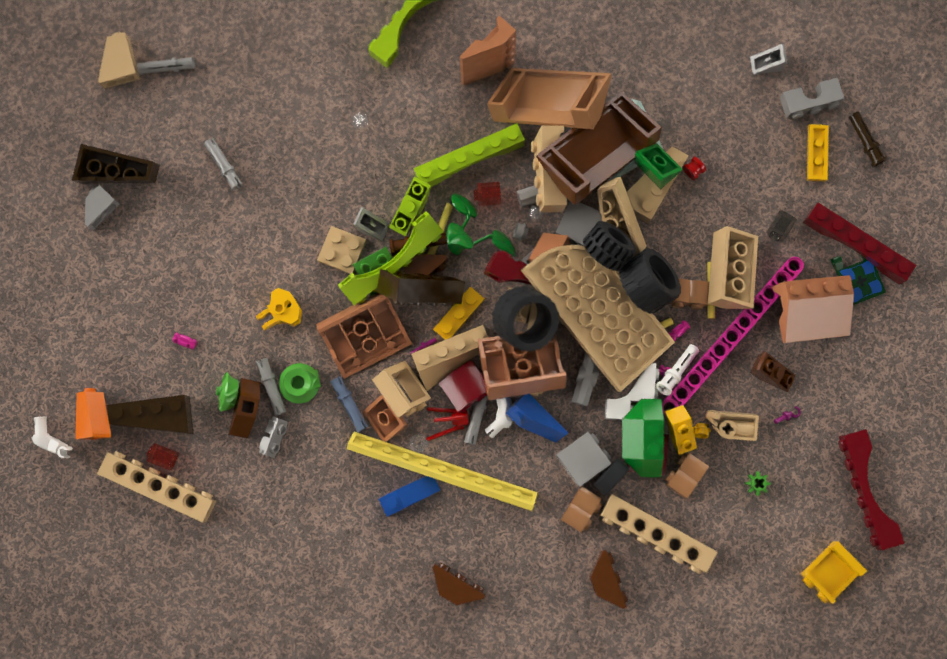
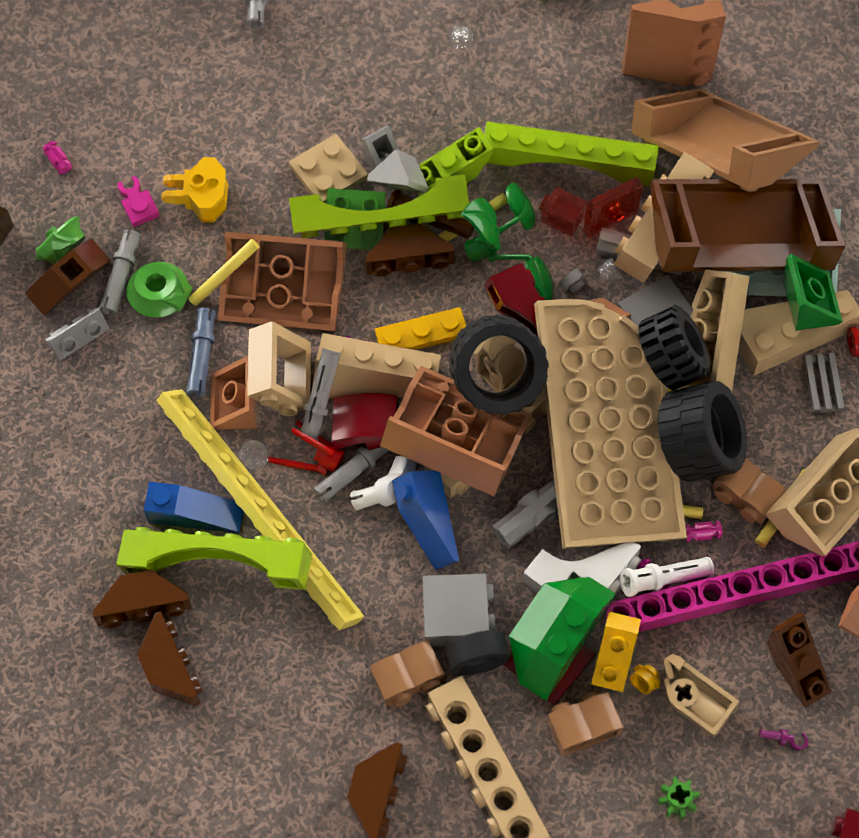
camera: 30 degrees right, 15 degrees down
(251, 340) = (138, 205): none -> dark pink plate
(331, 351) = (225, 271): none -> light yellow bar
(389, 231) = (399, 172): none -> light grey slope
(402, 536) = (283, 561): none -> lime arch
(416, 562) = (139, 598): none -> reddish brown slope
(420, 288) = (394, 261): dark brown wedge -> none
(436, 397) = (320, 393): none -> light grey pin
(516, 176) = (612, 207): none -> clear red plate
(678, 193) = (820, 360): none -> light grey tile

